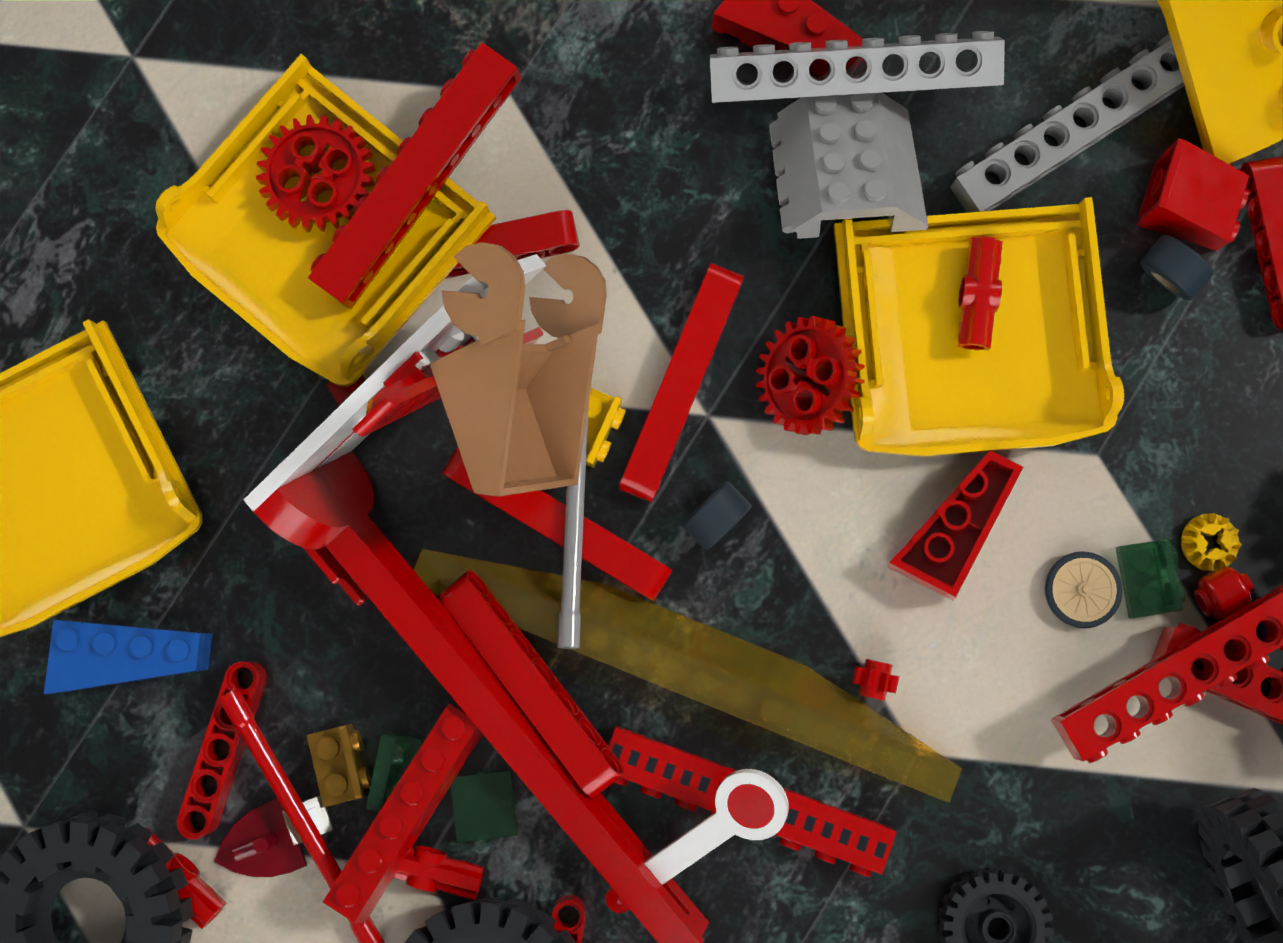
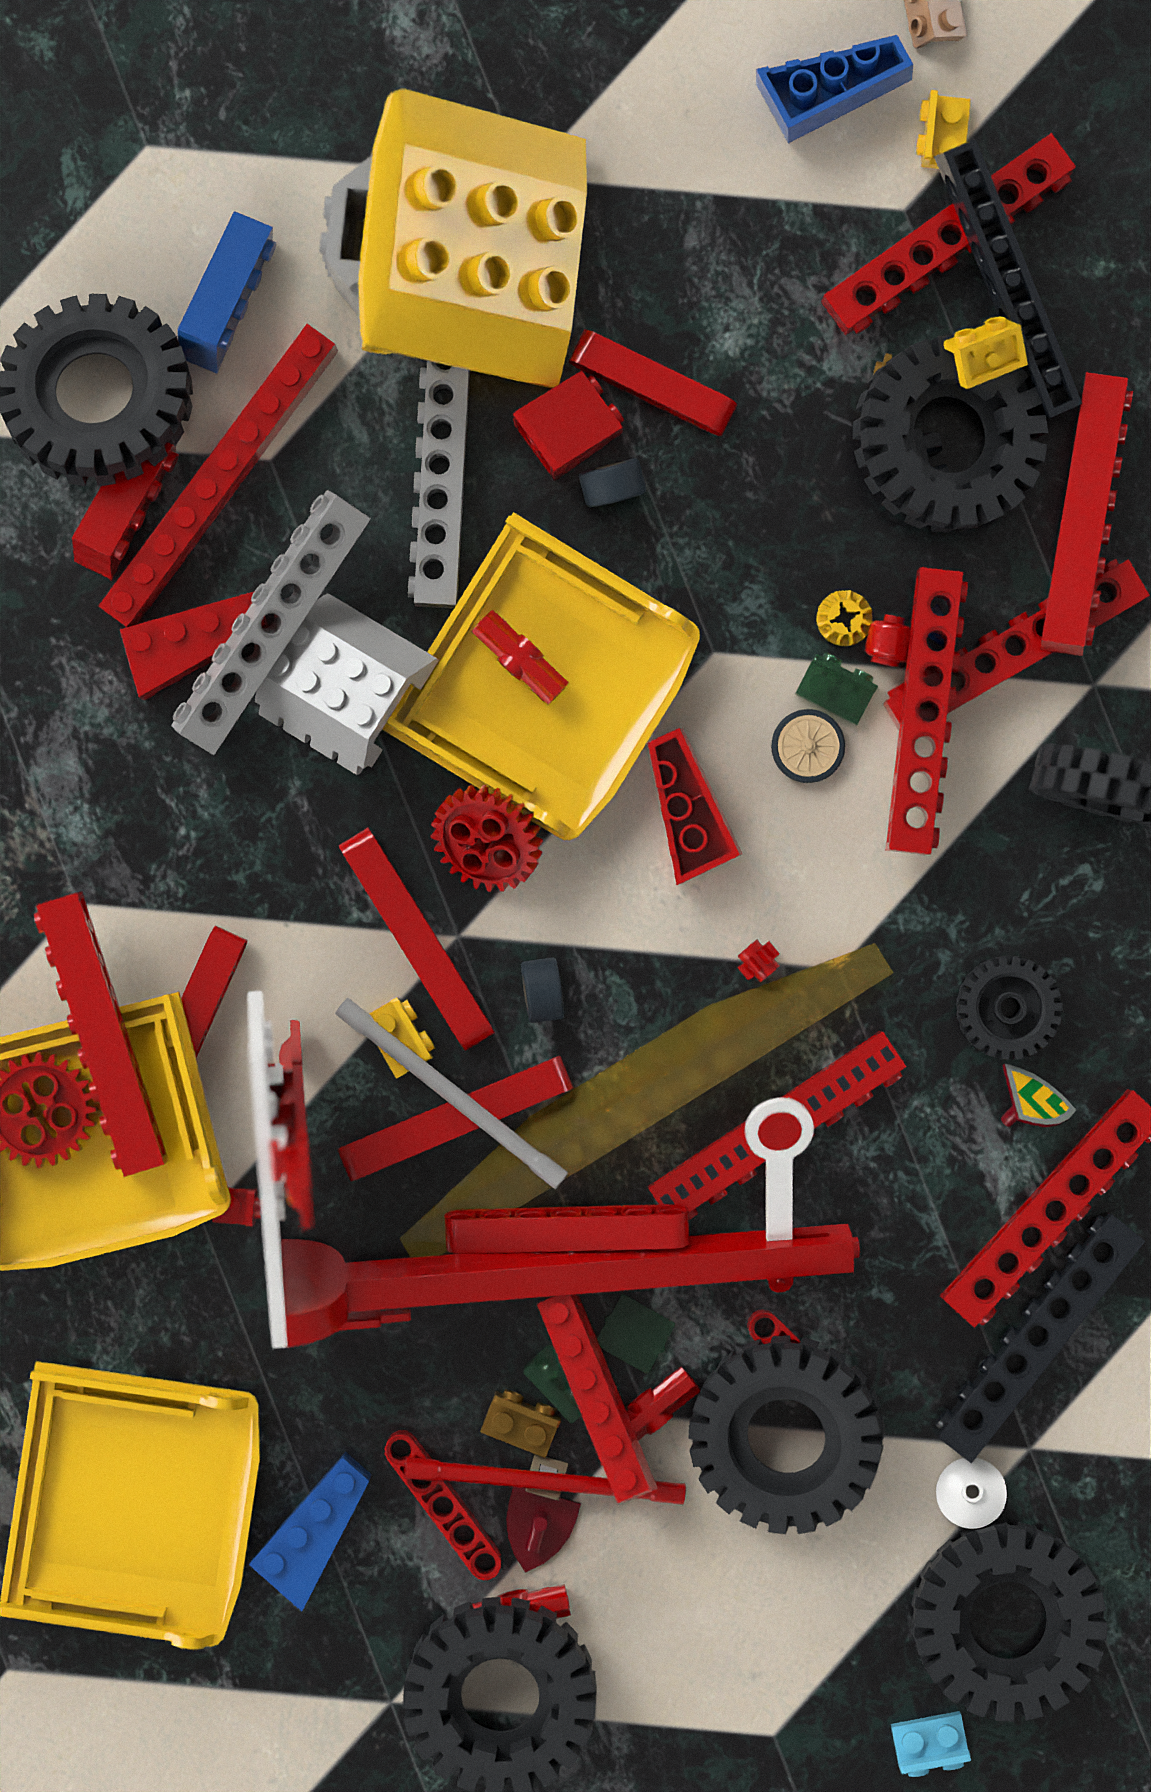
camera: 55 degrees left, 5 degrees up
(516, 403) = (360, 1085): medium nougat piece -> none

